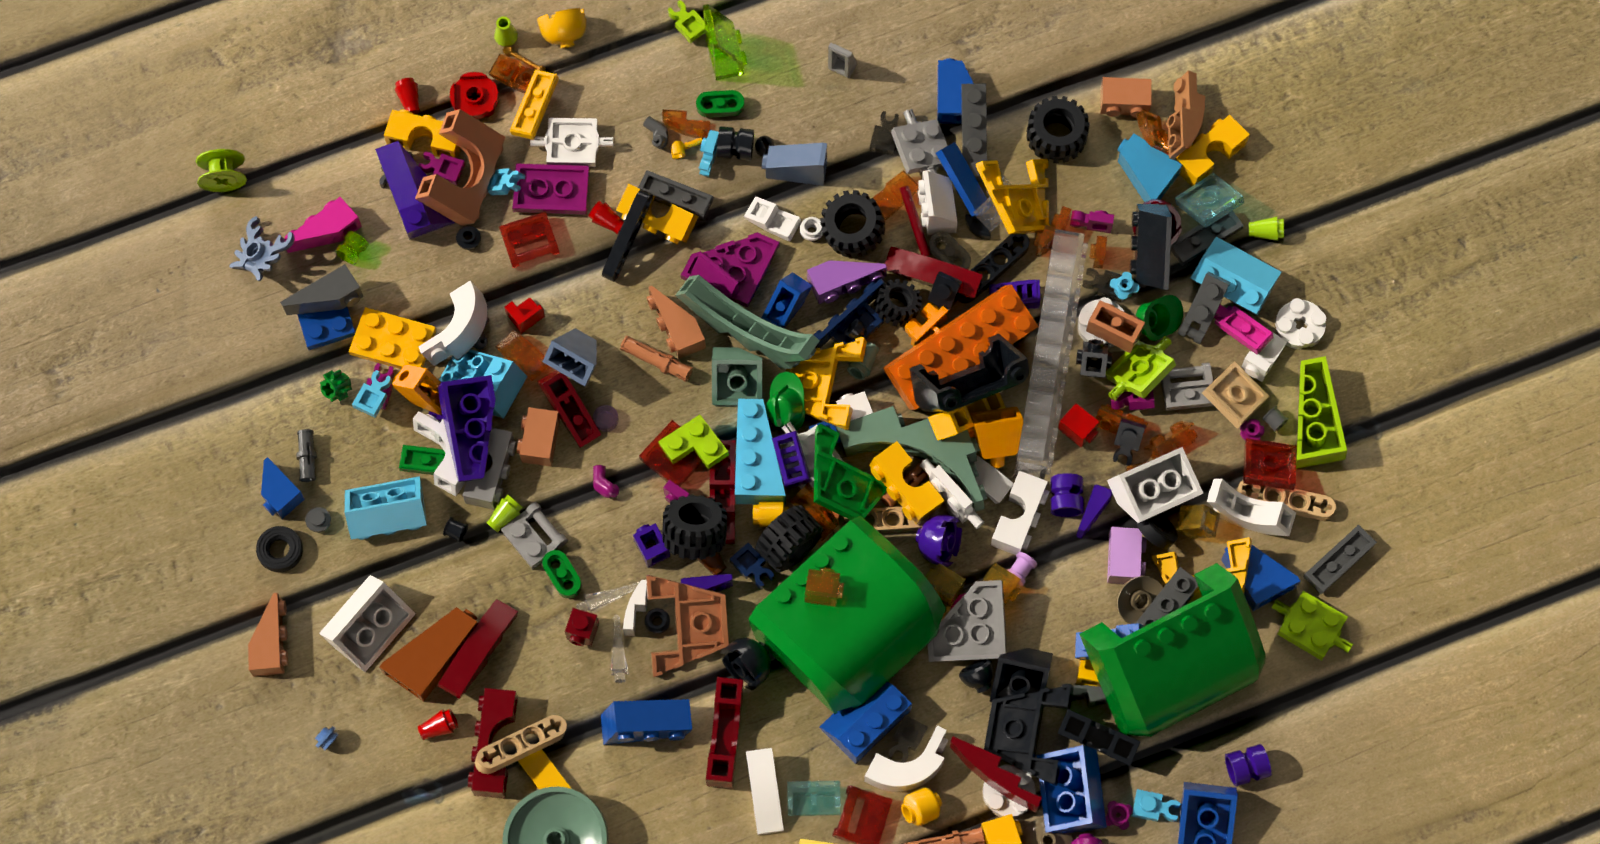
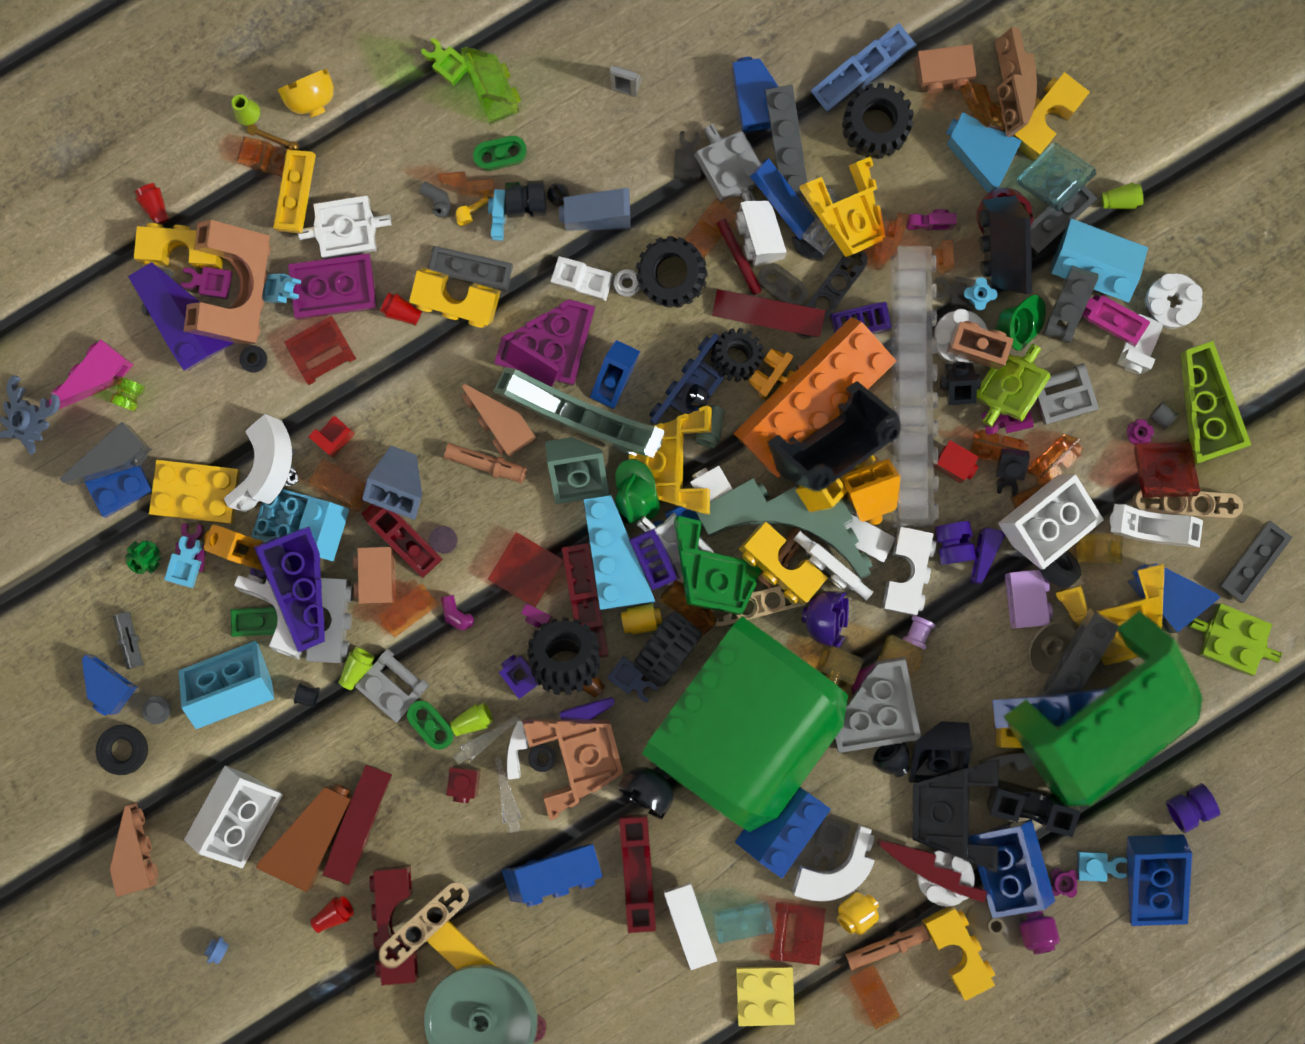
camera: 10 degrees left, 15 degrees up
(478, 82) = (213, 182): red plate -> none
(562, 472) = (408, 610): none -> clear orange hinge
(600, 576) = (473, 719): none -> lime cone
(627, 235) = (427, 329): black beam -> none
(696, 437) = (543, 549): lime plate -> none
(823, 587) = (719, 714): clear orange brick -> none
(840, 277) = (667, 335): medium lavender slope -> none
(945, 291) = (786, 335): black bracket -> none
(1056, 83) = (863, 67): none -> medium blue slope
(1235, 394) = (1118, 396): tan plate -> none

